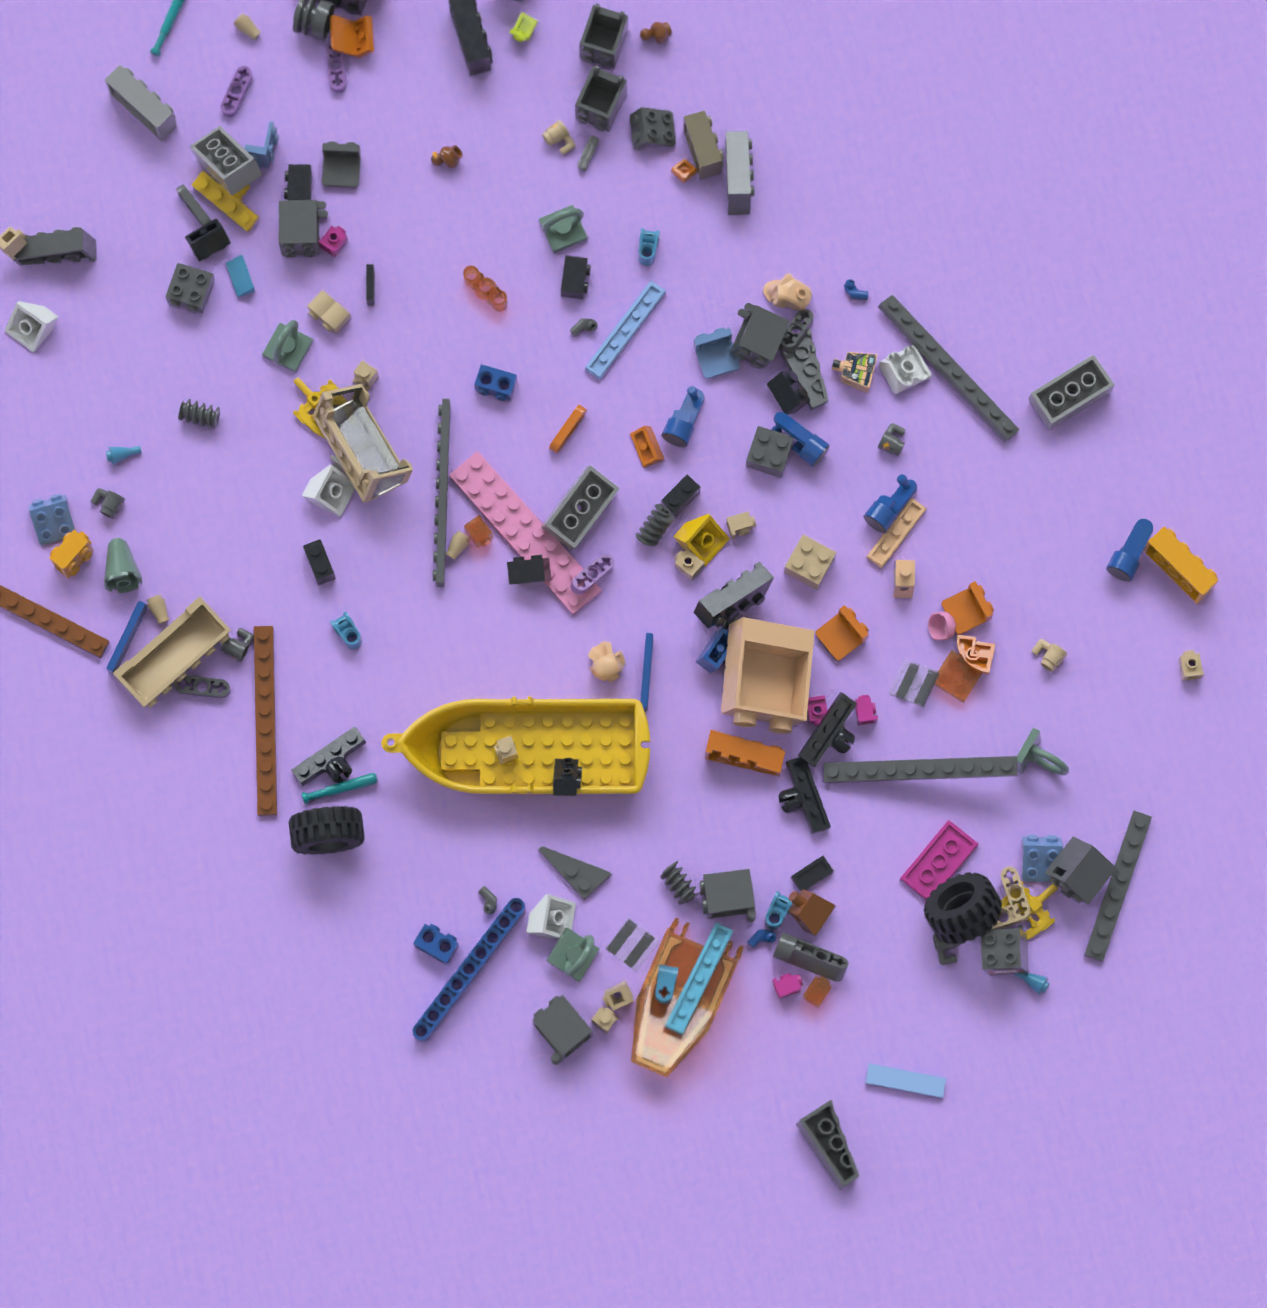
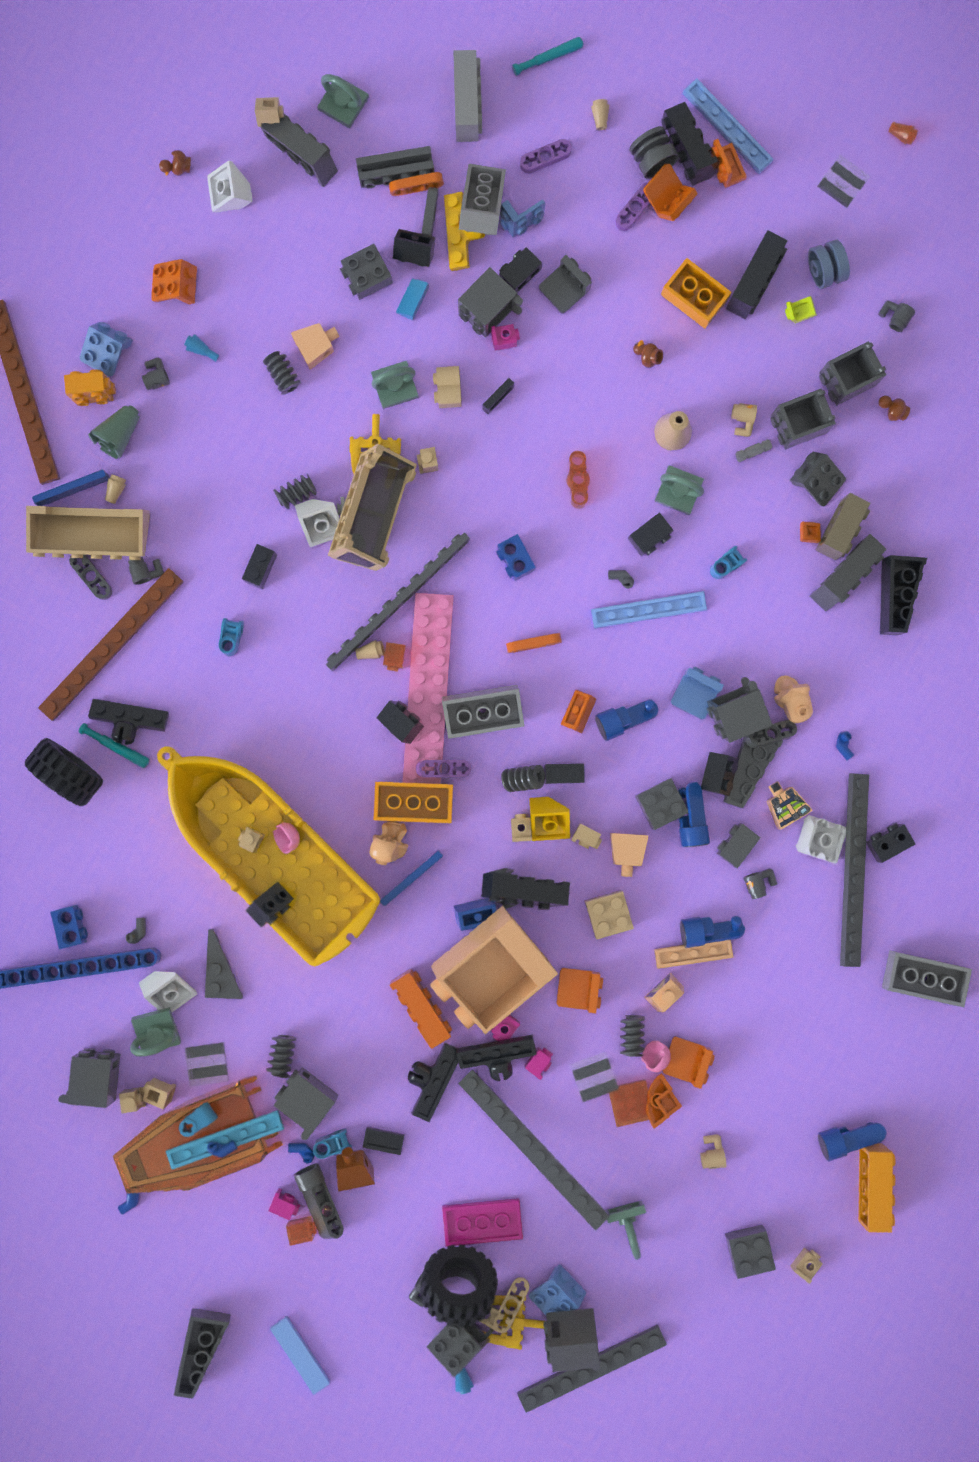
camera: 40 degrees right, 10 degrees up
(51, 188) = (341, 100): none -> sand green tile
(55, 425) = (174, 281): none -> orange bracket
(136, 198) = (393, 166): none -> dark grey brick
(163, 195) = (416, 184): none -> orange beam
(201, 372) = (314, 343): none -> light nougat torso
(291, 485) = (295, 491): none -> dark grey piece
(439, 84) = (695, 293): none -> light orange brick
(518, 192) = (673, 431): none -> tan cone
(530, 723) = (286, 837): none -> bright pink hair
(595, 617) = (413, 802): none -> light orange brick
(676, 1092) = (131, 1202): none -> blue arm
(704, 984) = (221, 1150): none -> blue arm
(778, 506) = (628, 851): none -> light nougat torso
(785, 151) = (898, 592): none -> black wedge
(851, 429) = (737, 845): none -> dark grey brick
(910, 629) = (632, 1035): none -> dark grey piece
(954, 325) = (890, 842): none -> black brick
(1142, 695) = (750, 1251): none -> dark grey brick

